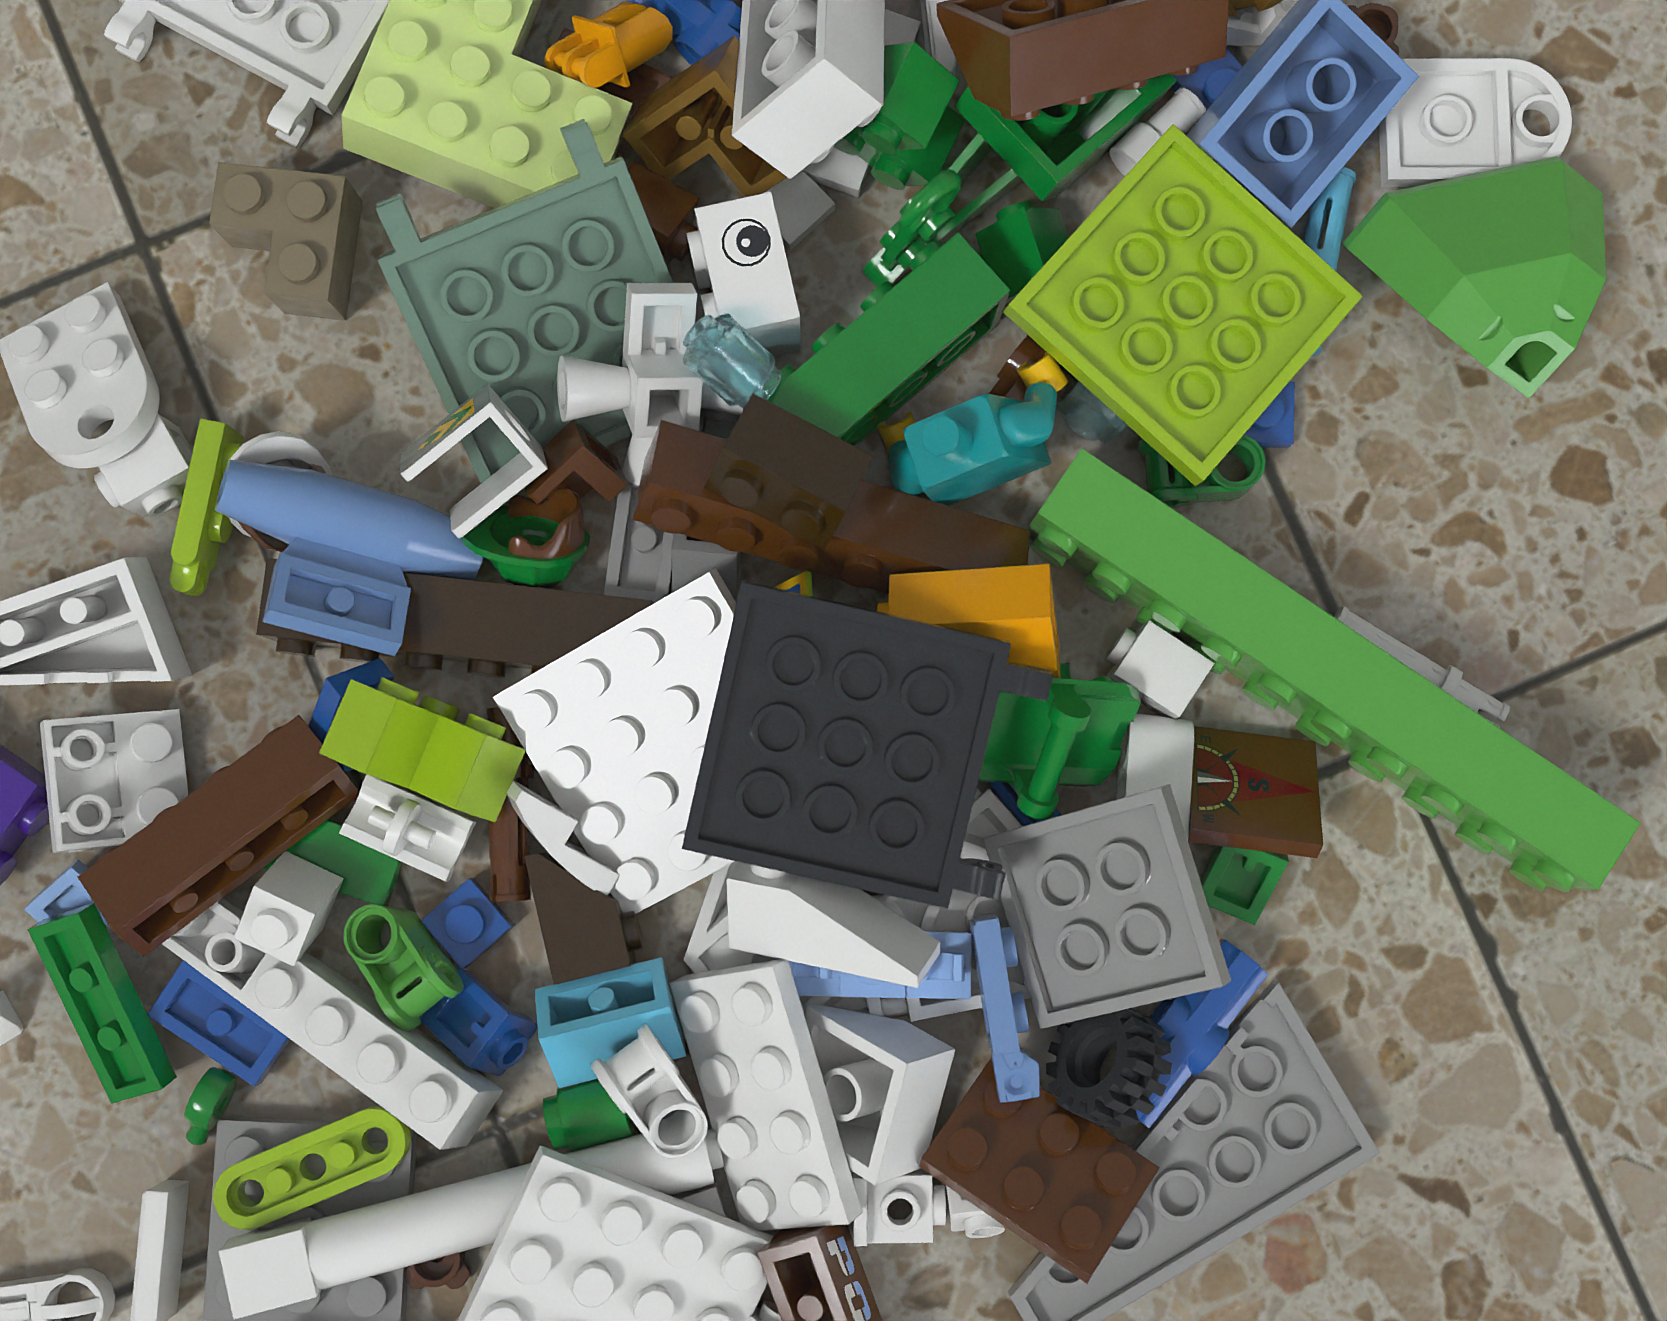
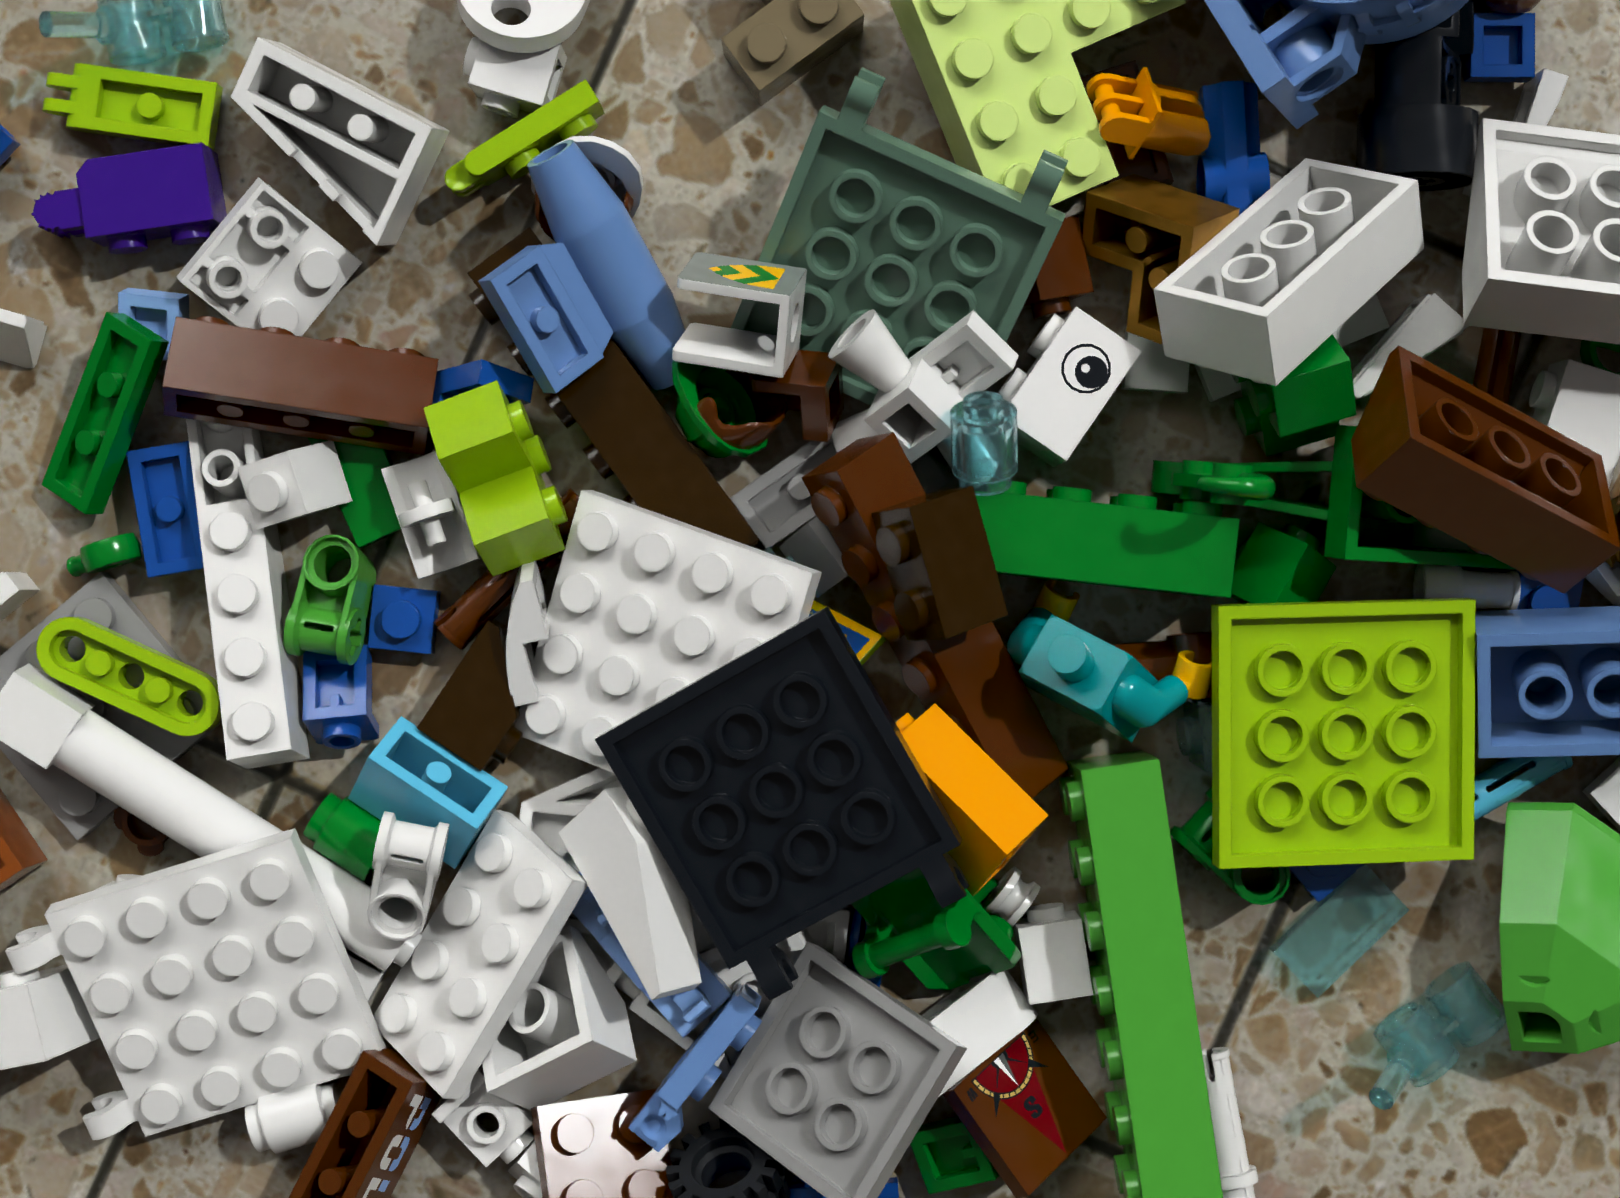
camera: 50 degrees right, 5 degrees up
(1087, 658) = (1011, 897): none -> white bush
(1327, 449) = (1339, 930): none -> clear light blue tile
(1456, 452) = (1423, 1031): none -> clear light blue beam

